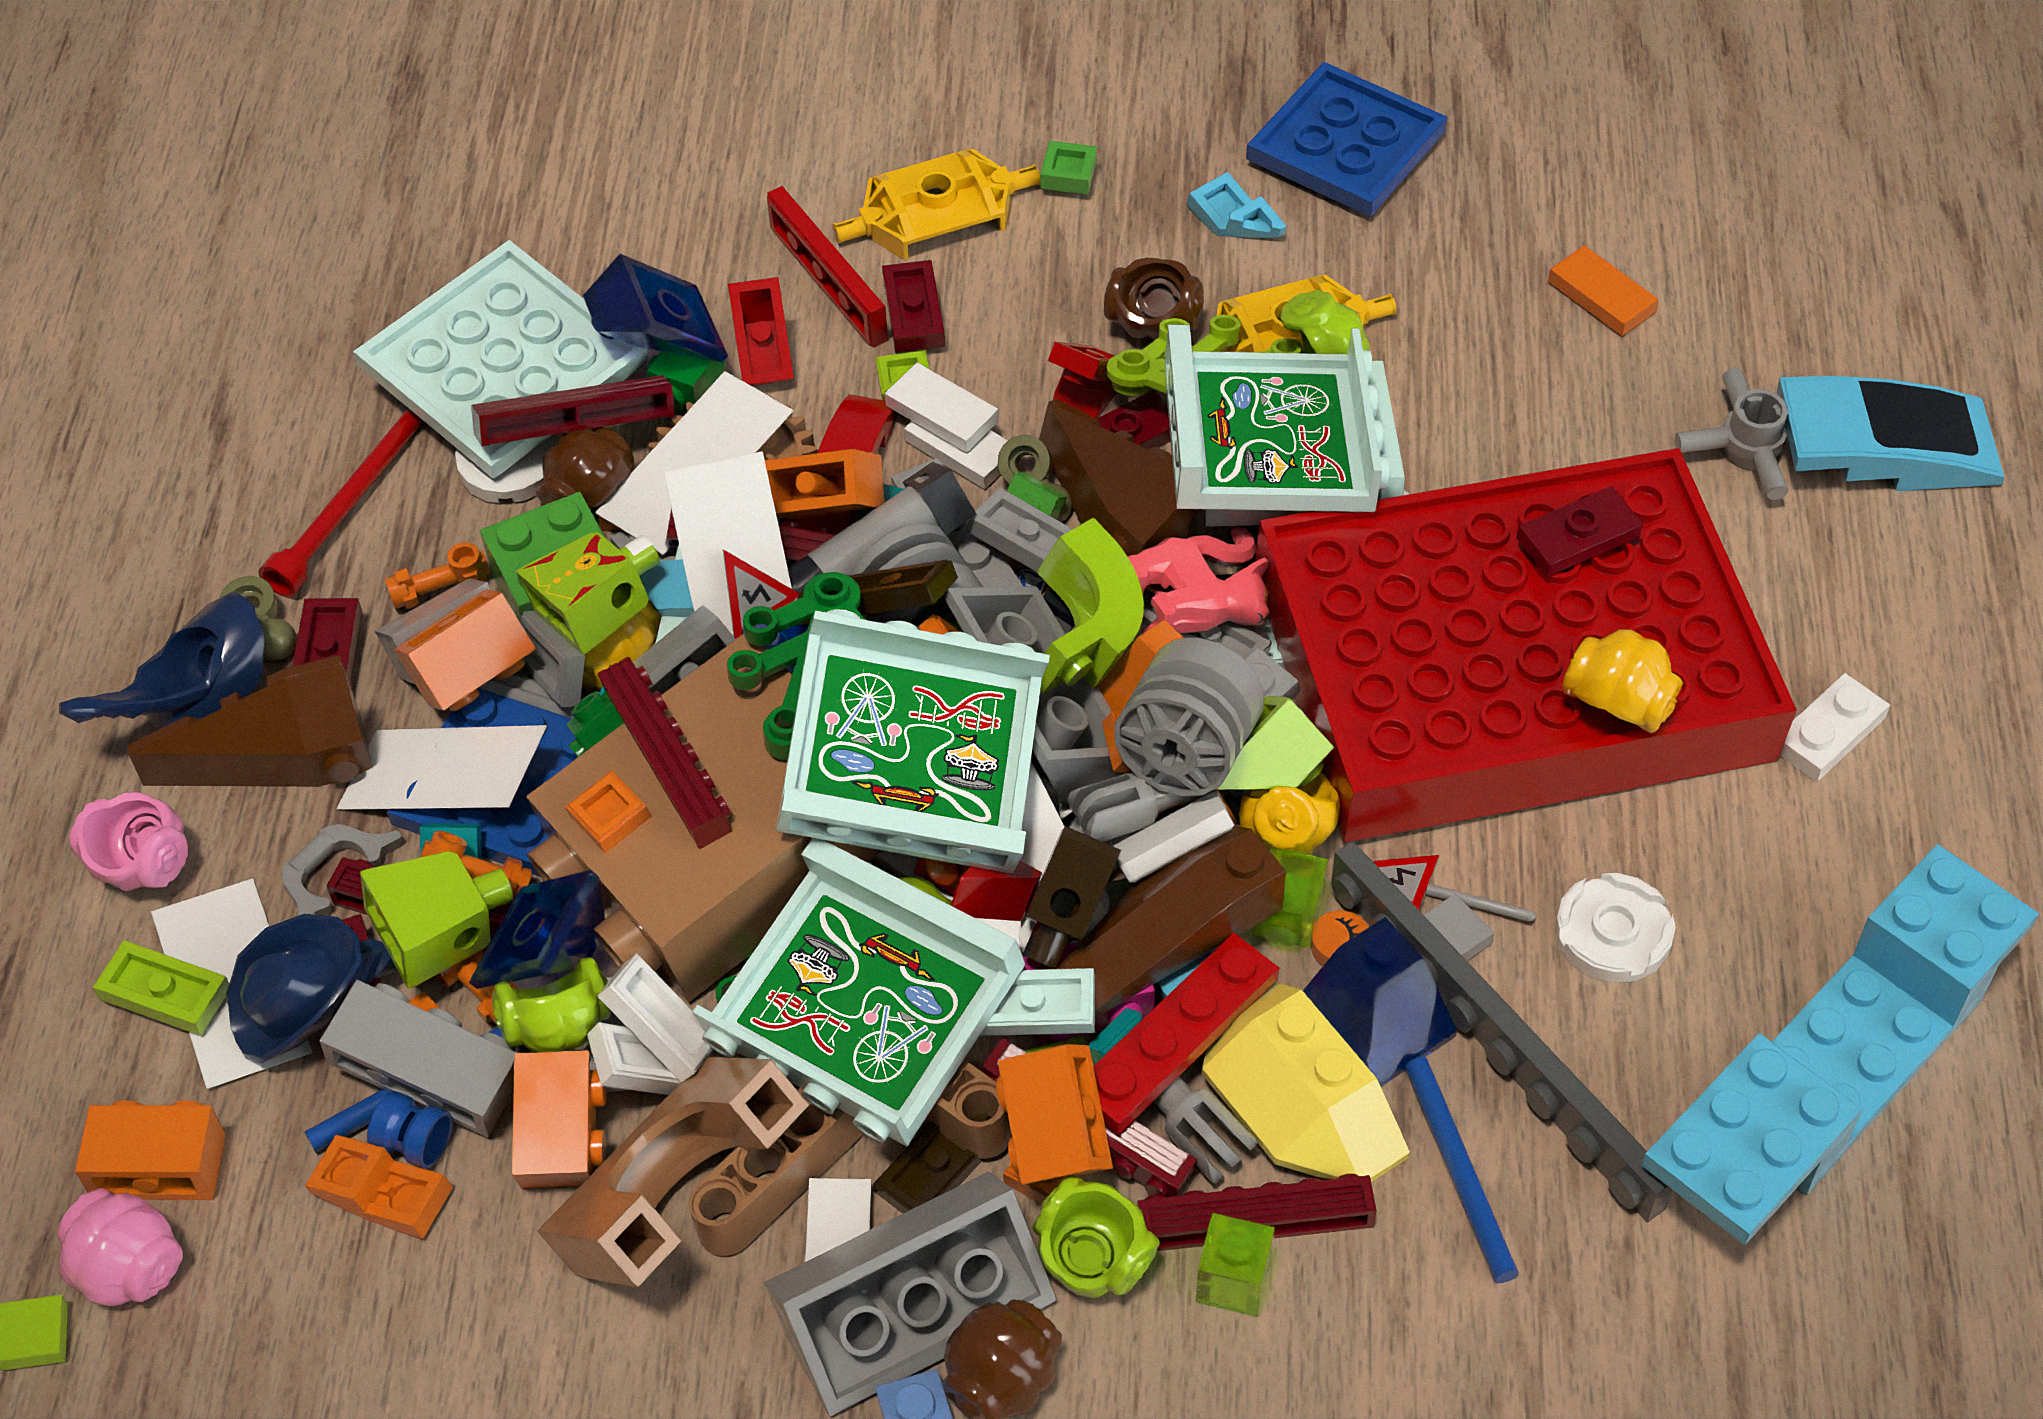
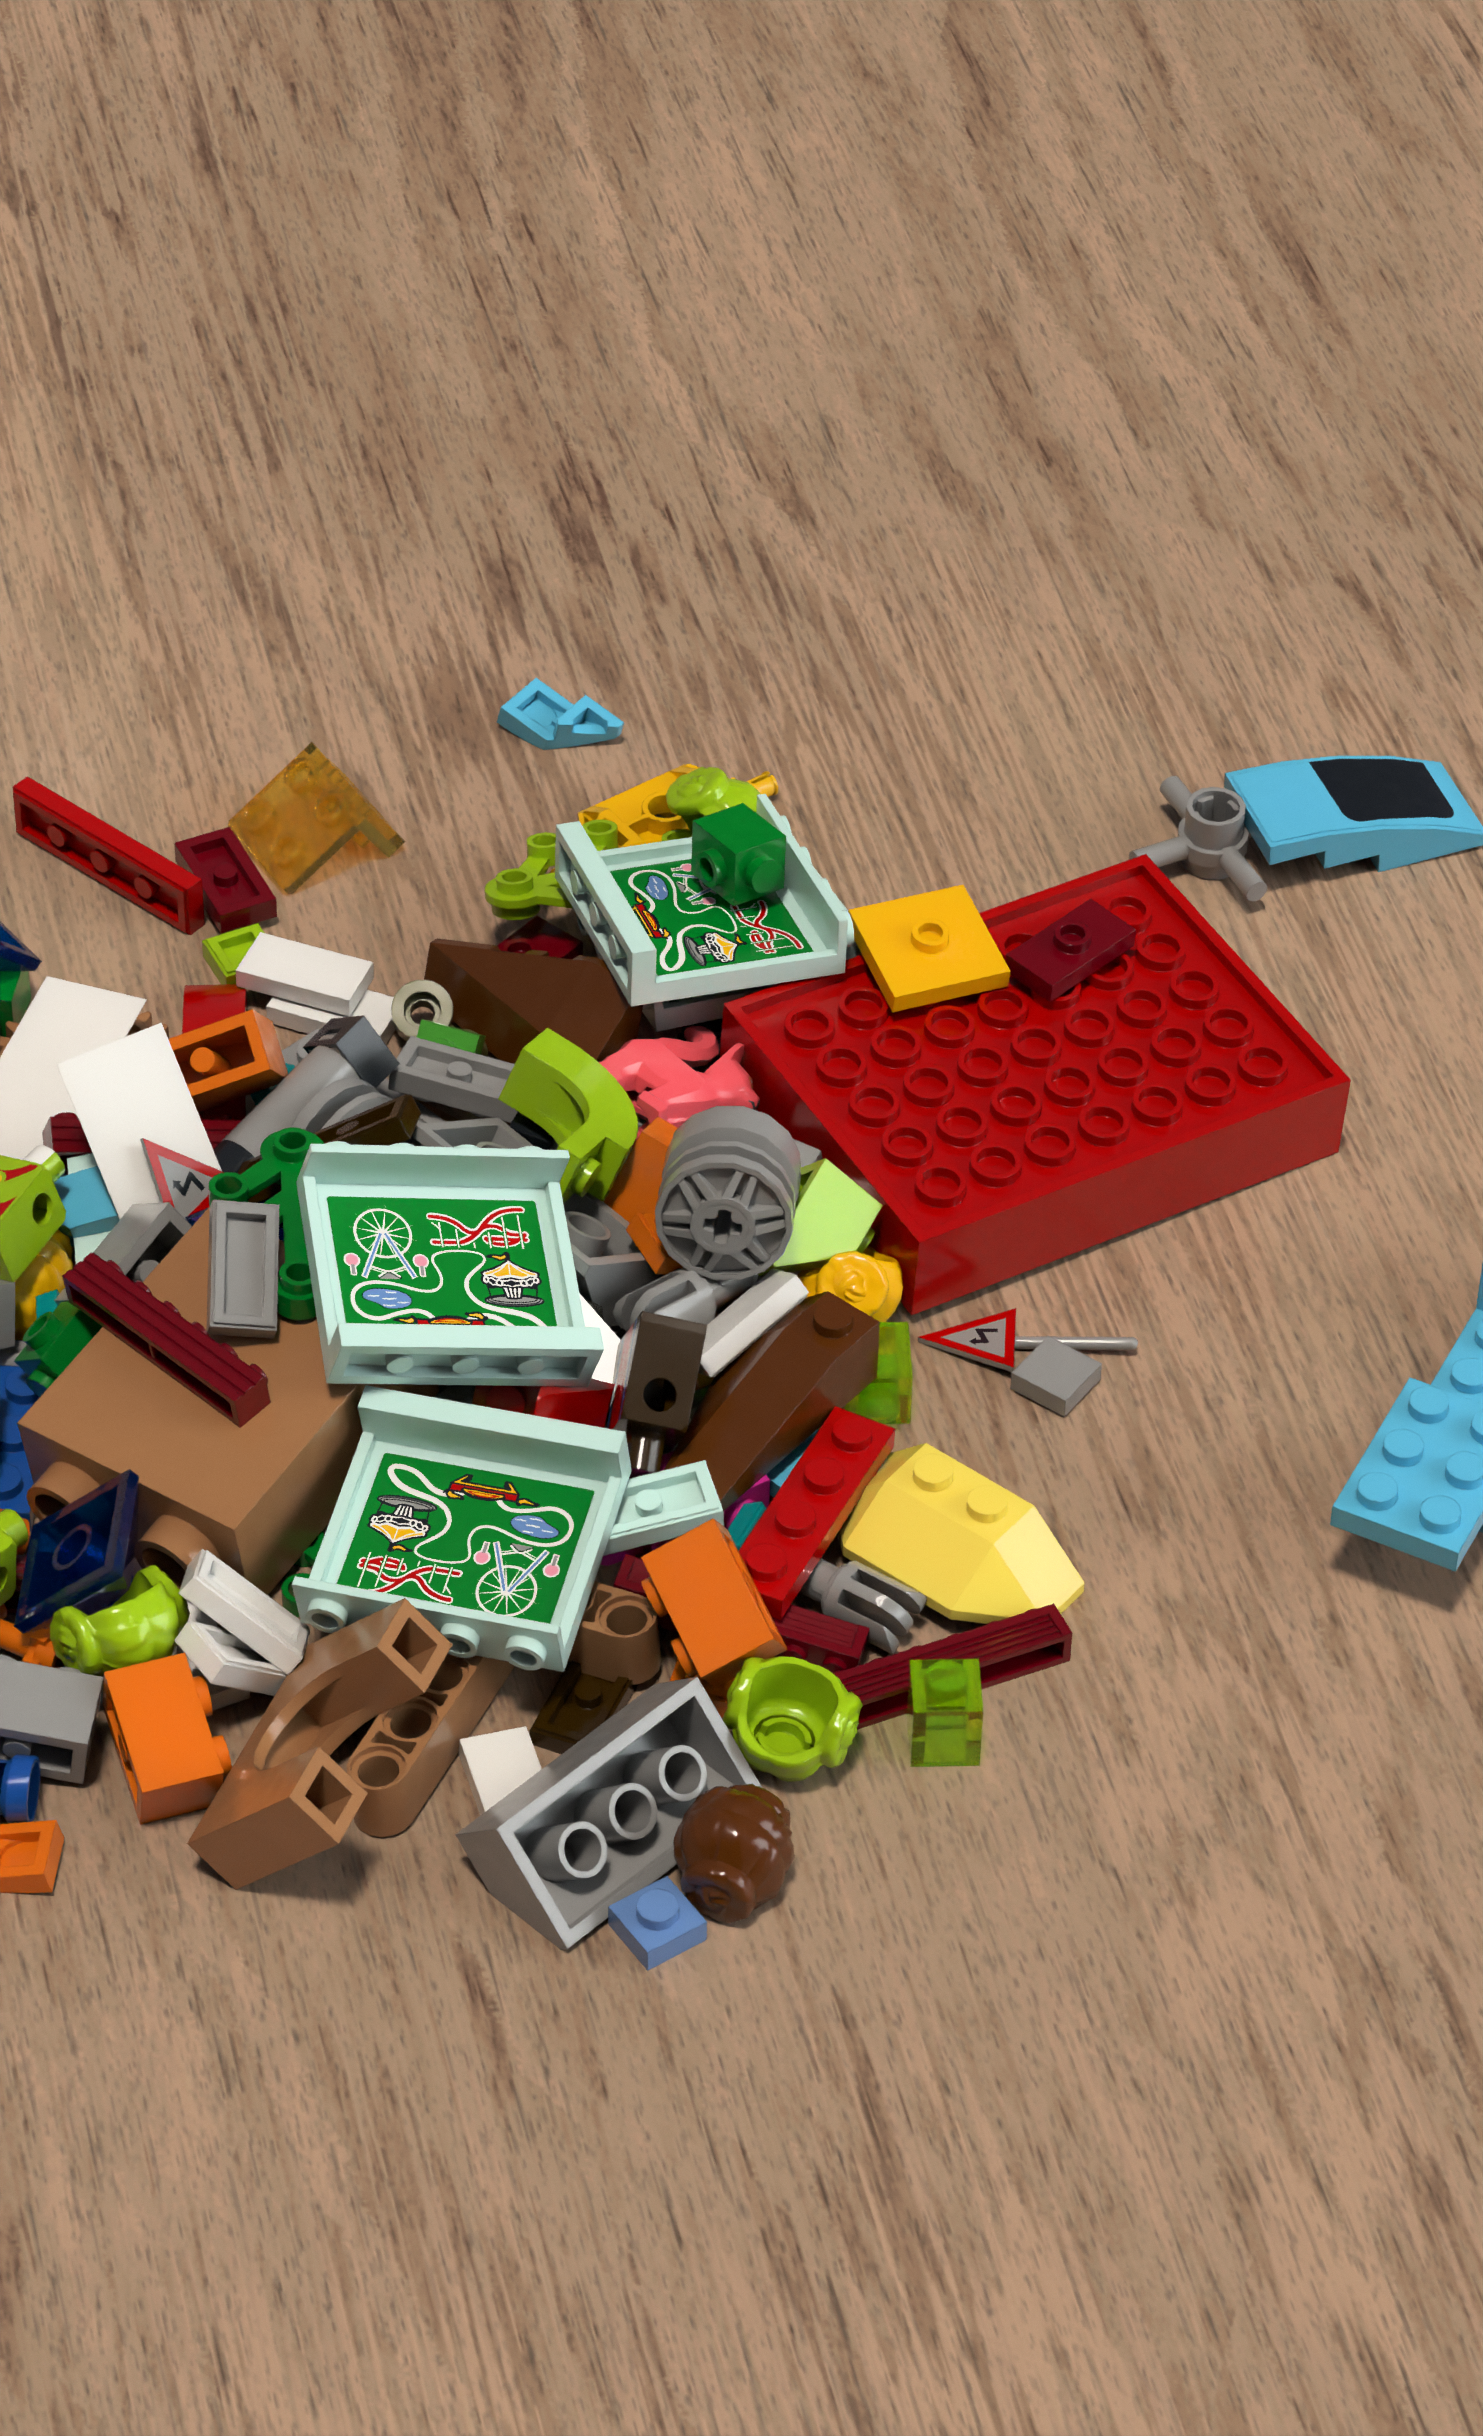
camera: 20 degrees left, 10 degrees down
(608, 811) = (123, 1412): orange tile -> none
(741, 704) = (242, 1269): none -> light grey tile
(760, 331) = (61, 929): red slope -> none
(902, 212) = (172, 785): yellow plate -> none
(999, 262) = (307, 818): none -> clear yellow bracket
(1068, 167) = (349, 705): bright green plate -> none
(1084, 377) = (454, 911): red slope -> none
(1150, 293) = (498, 817): reddish brown hair -> none
(1313, 384) = (738, 854): none -> green brick
(1334, 930) = (942, 1406): orange tile -> none
(1346, 138) = (657, 620): blue plate -> none
(1382, 1000) = (1013, 1438): clear blue slope -> none
(1453, 505) = (928, 948): none -> yellow plate
(1461, 1170) = (1142, 1586): blue bar -> none
(1508, 1041) = (1137, 1447): dark grey plate -> none
(1603, 290) = (999, 728): orange tile -> none
(1614, 928) = (1223, 1337): white tile -> none
(1625, 677) = (1168, 1071): yellow hair -> none
(1832, 726) = (1386, 1106): white plate -> none

